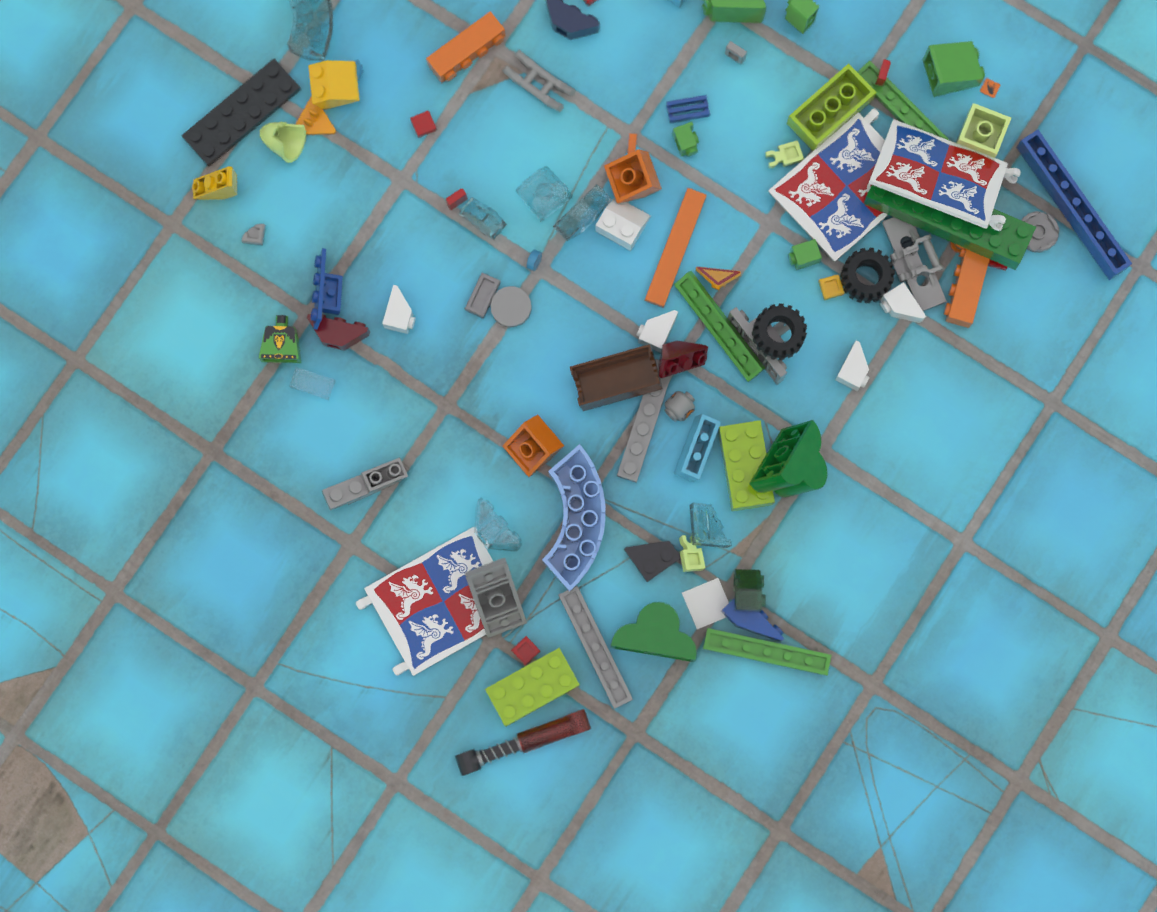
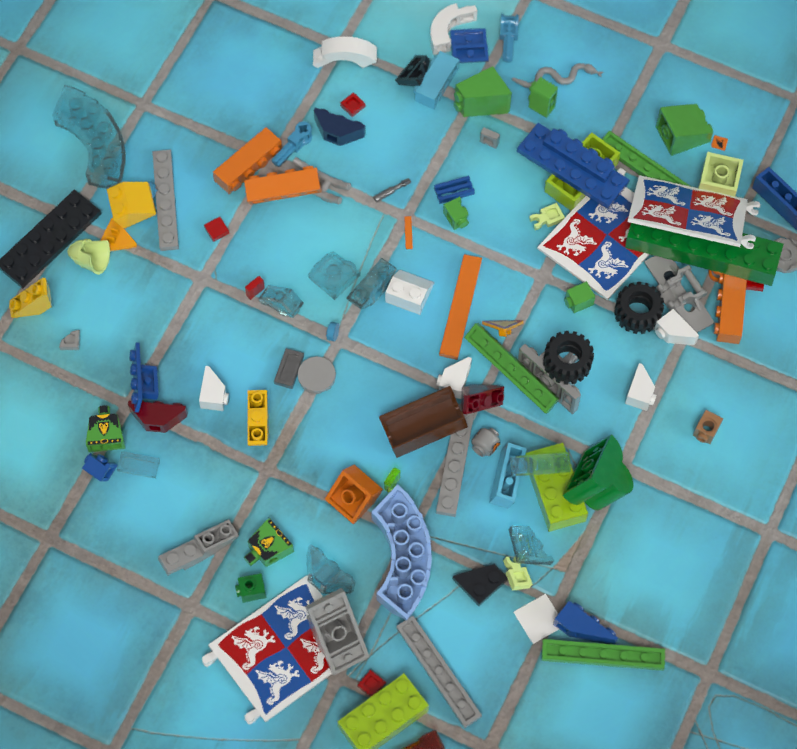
camera: 10 degrees left, 15 degrees down
(270, 382) = (99, 467): none -> blue brick
(371, 82) = (165, 200): none -> light grey plate
(414, 534) = (251, 588): none -> green brick
(437, 490) = (268, 545): none -> torso
(442, 351) = (257, 418): none -> yellow slope
(500, 84) = (283, 185): none -> orange brick
(520, 32) = (299, 138): none -> dark azure connector
(575, 435) = (392, 480): none -> clear neon green tile
(618, 101) = (387, 192): none -> flat silver piece
(632, 176) = (413, 249): orange slope -> none
(656, 634) = (495, 650): green brick -> none
(732, 445) = (540, 464): none -> clear light blue slope
(748, 590) = (576, 597): brick -> none
(822, 101) = (574, 164): none -> blue plate
(831, 287) = (608, 323): yellow tile -> none
(883, 72) = (623, 137): red tile -> none
(924, 414) = (711, 420): none -> medium nougat brick

